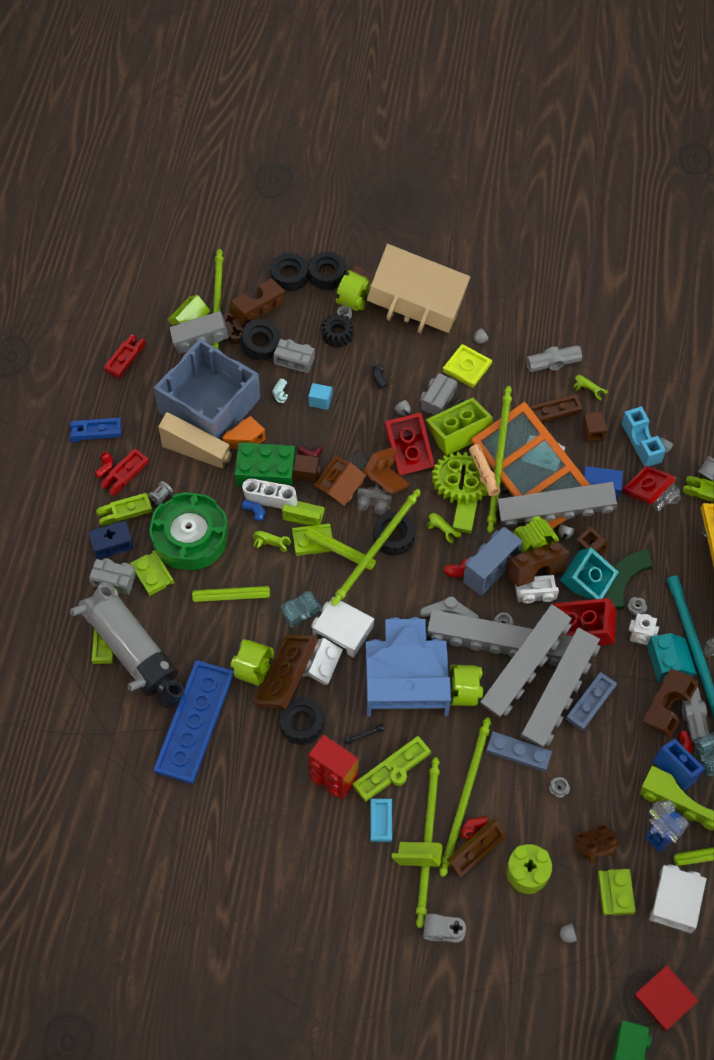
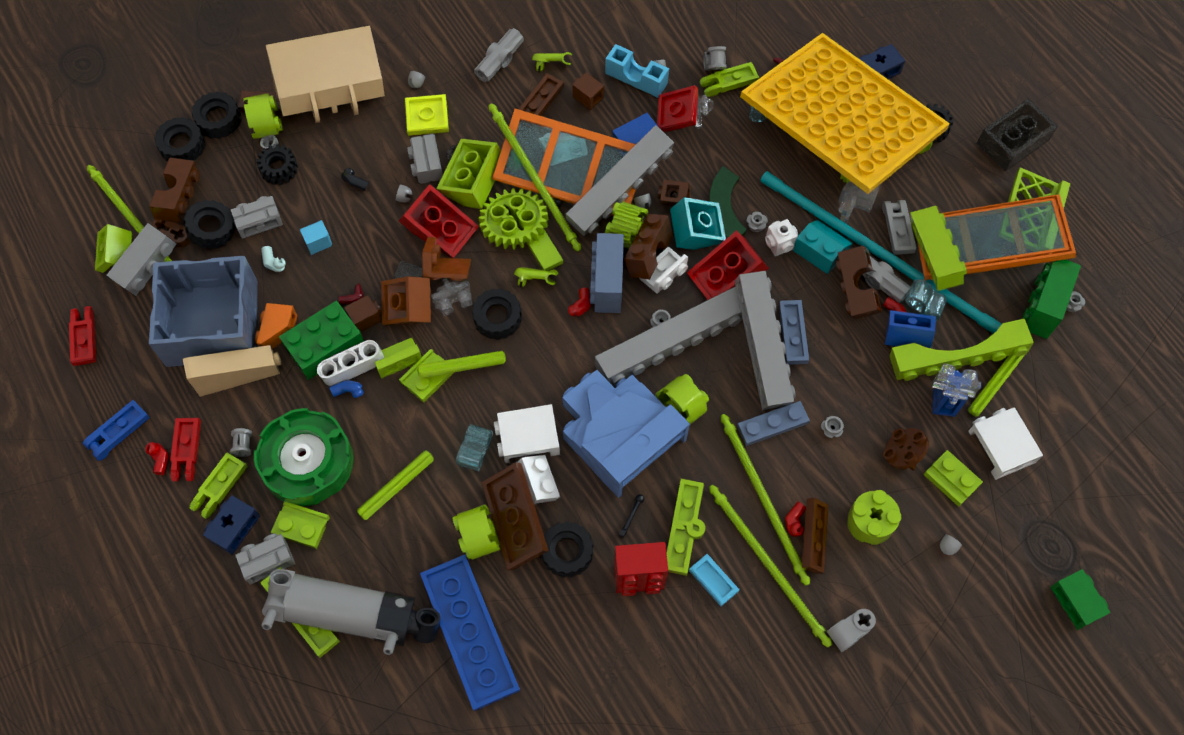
camera: 40 degrees left, 5 degrees up
(265, 538) = (382, 408): lime piece -> none
(341, 593) = (503, 404): lime hose -> none
(418, 854) = (775, 582): lime panel -> none
(448, 605) = (603, 342): light grey piece -> none
(487, 476) = (538, 200): light nougat pin -> none
(525, 661) = (717, 338): light grey brick -> none
(666, 998) = (1066, 533): red tile -> none

